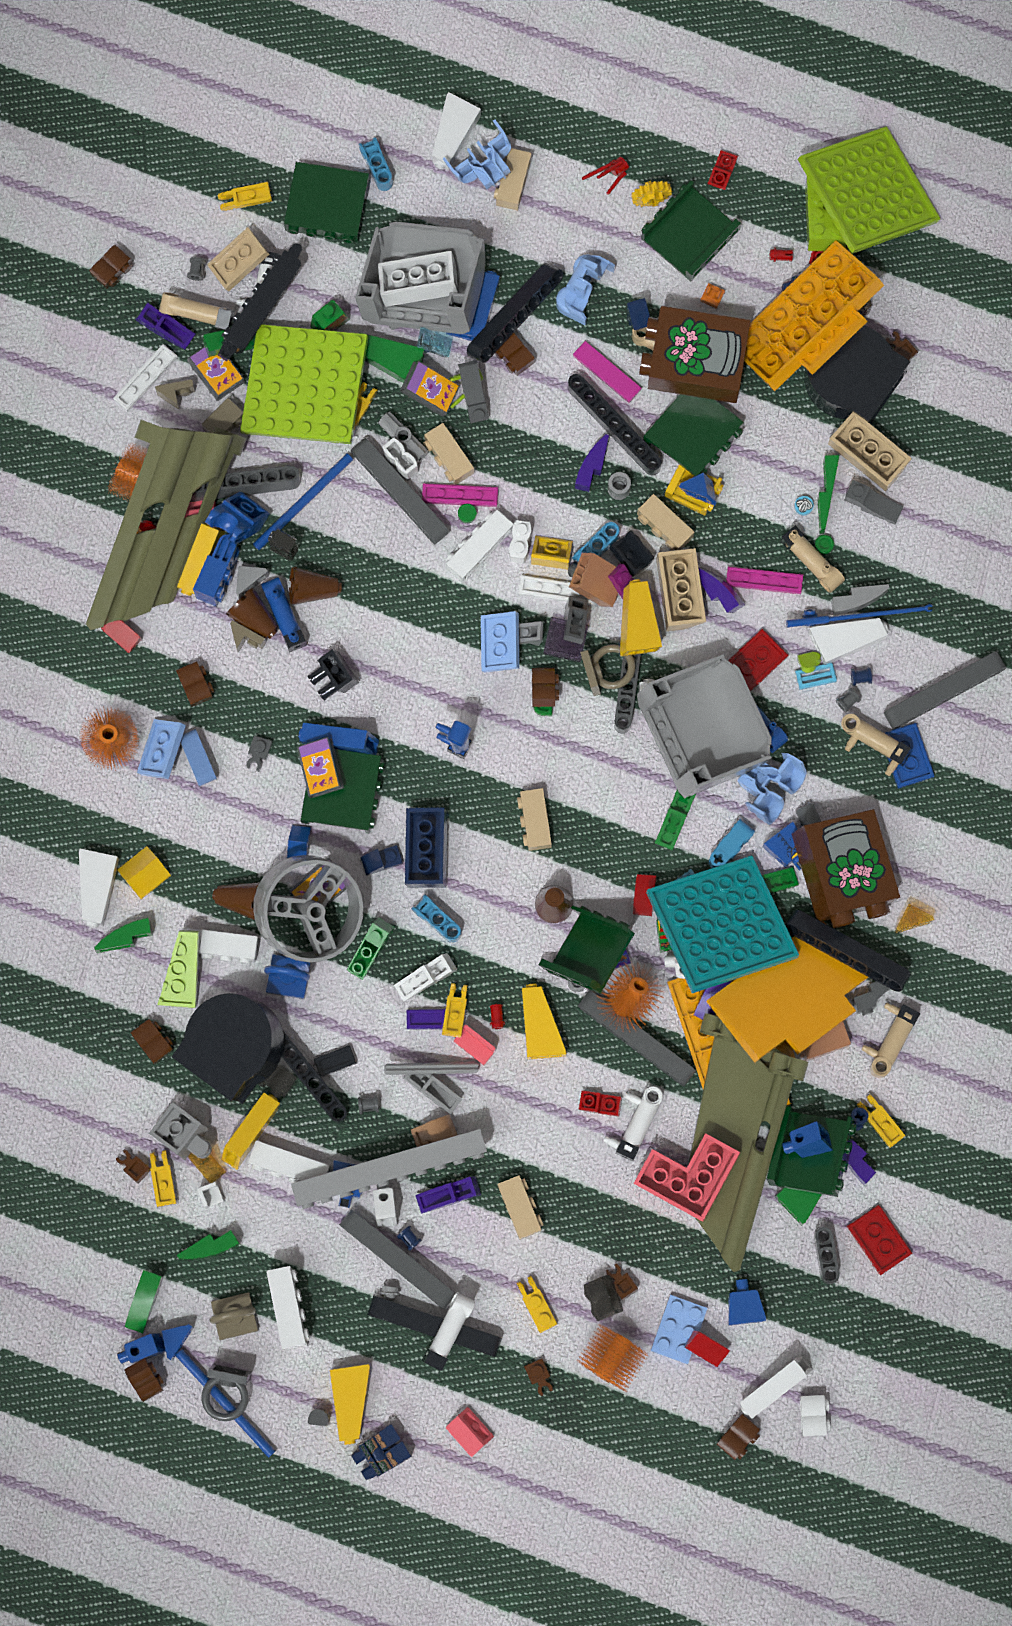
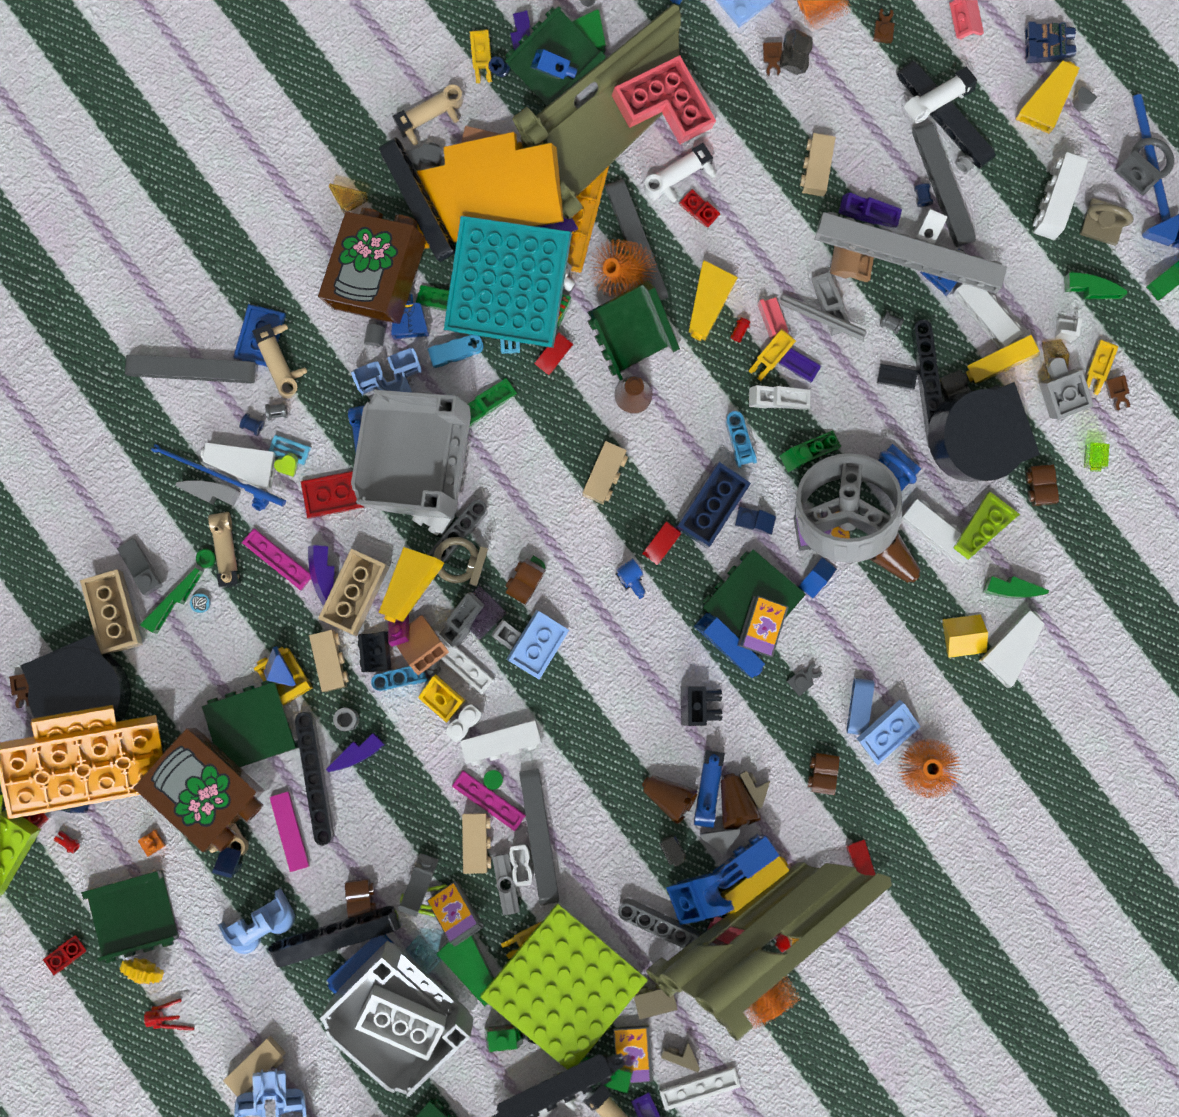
camera: 145 degrees left, 5 degrees up
(119, 1095) = (1096, 456): none -> clear neon green brick
(304, 500) = (629, 881): blue piece -> none
(449, 790) = (661, 543): none -> red slope
(537, 1307) = (852, 80): yellow hinge -> none

